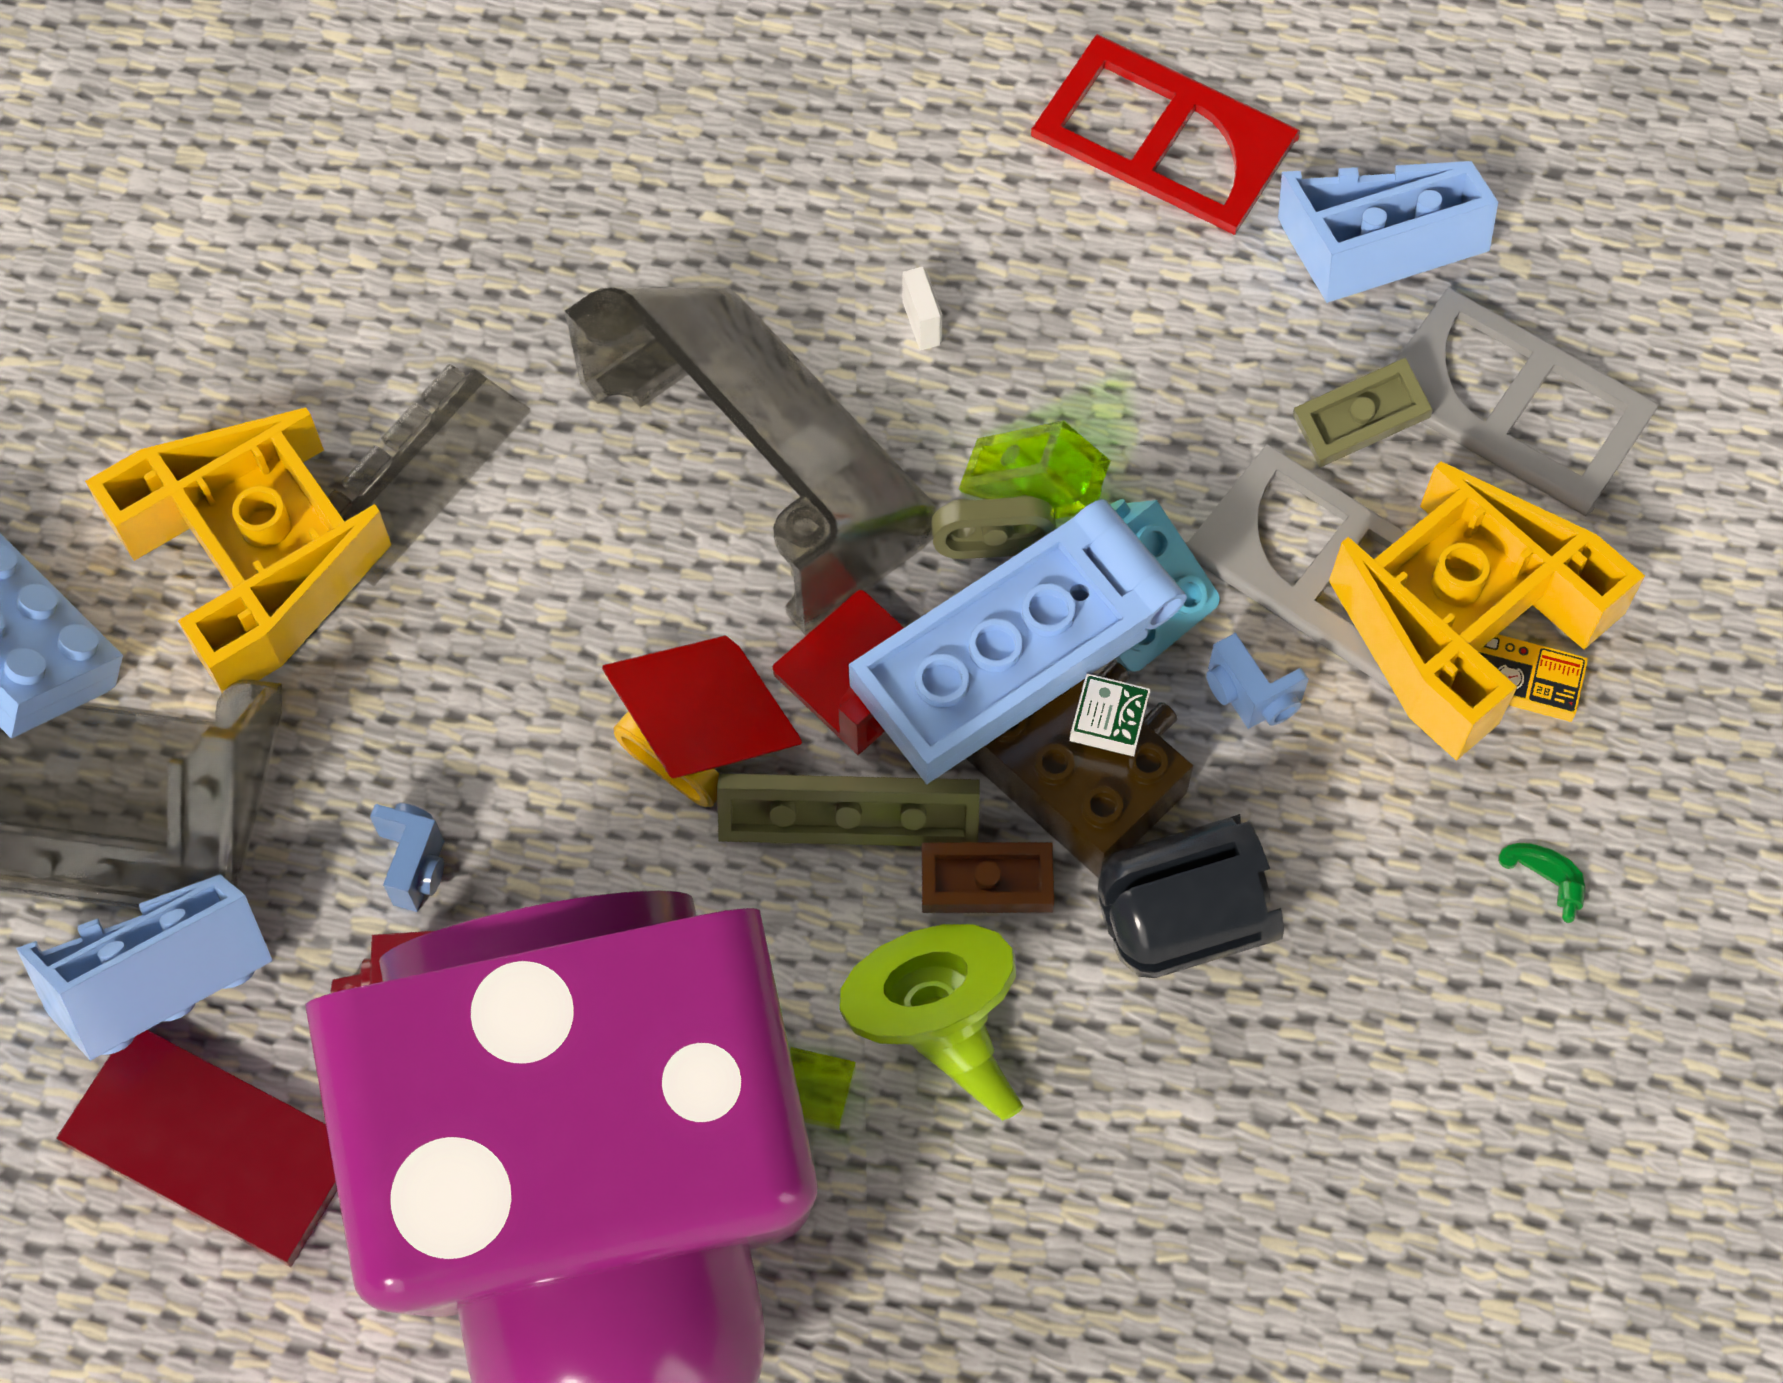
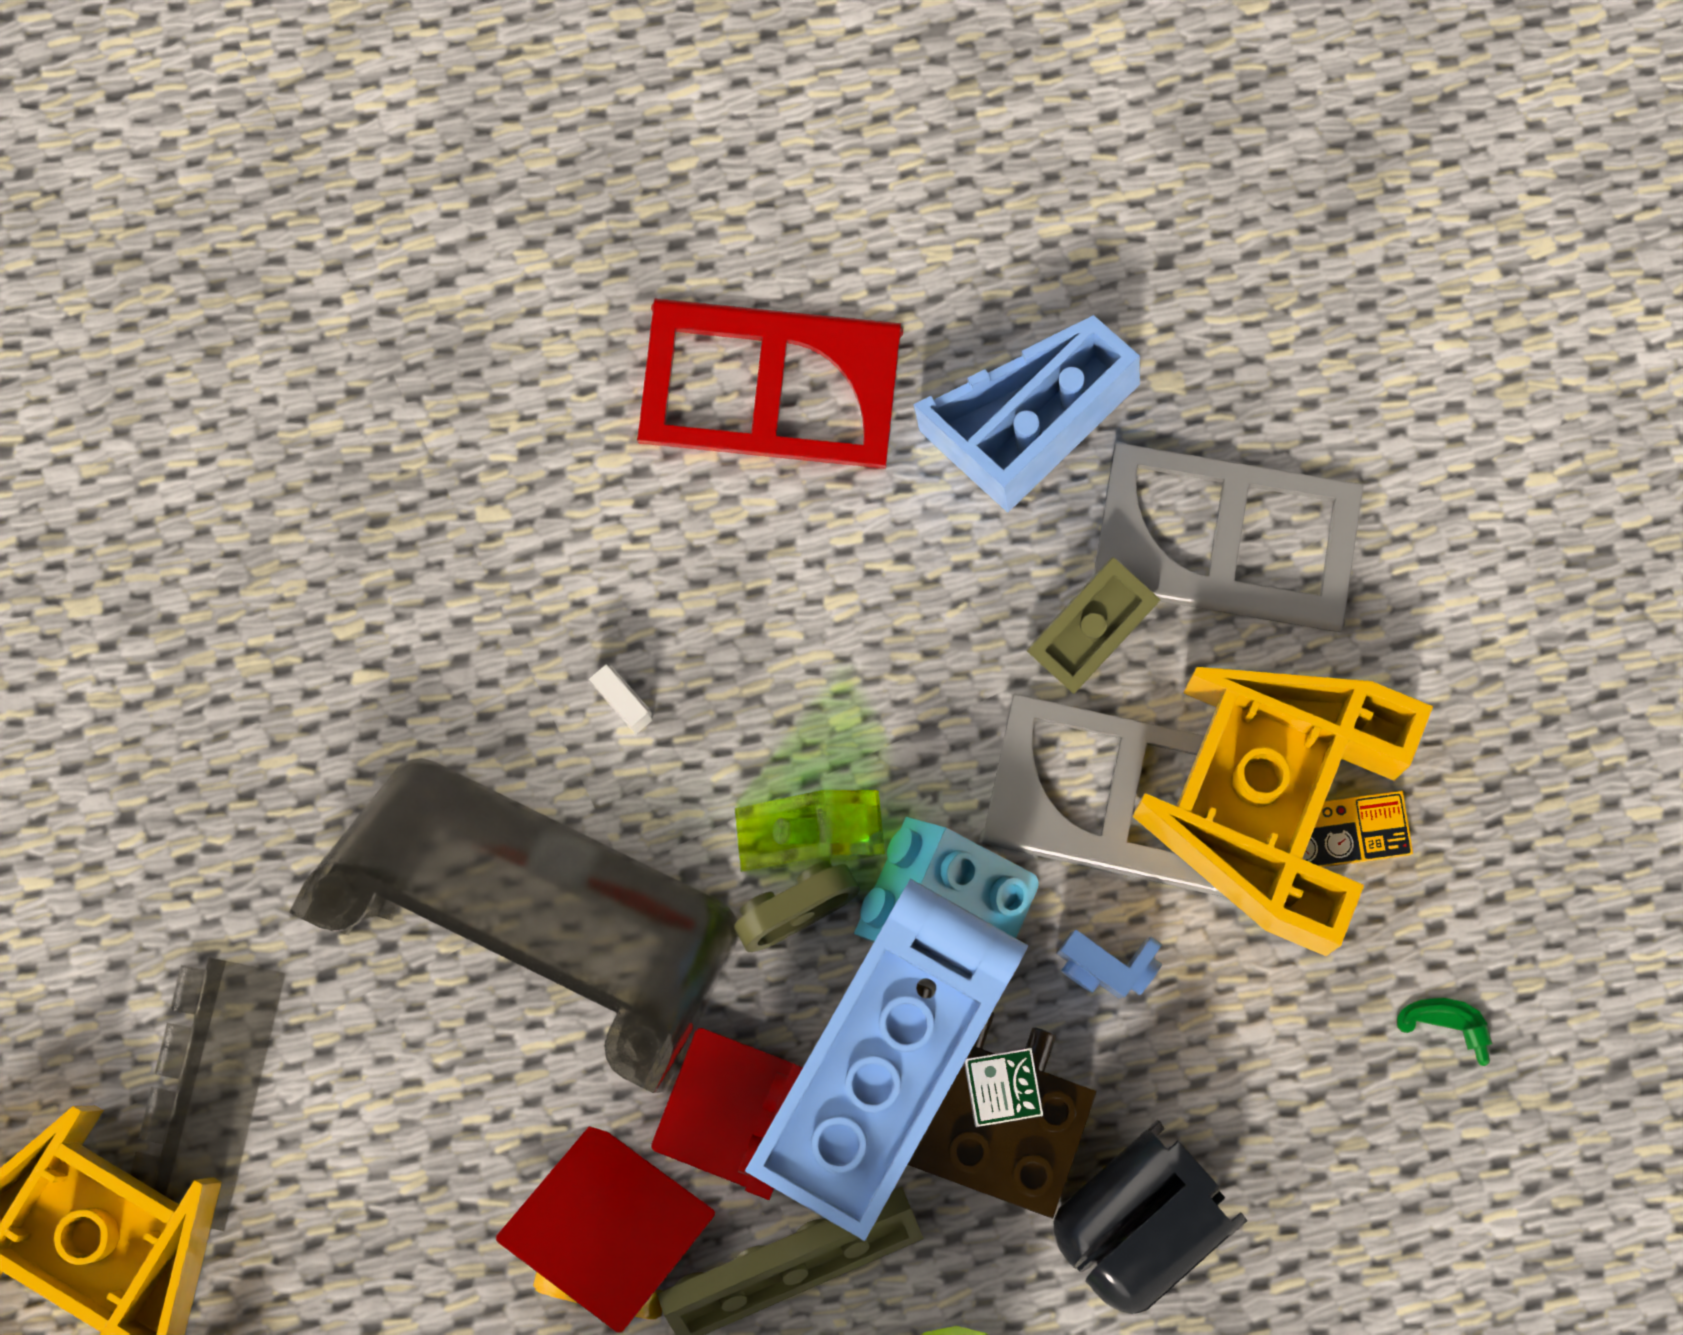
camera: 25 degrees left, 15 degrees up
(987, 877) = (947, 1270): reddish brown plate -> none

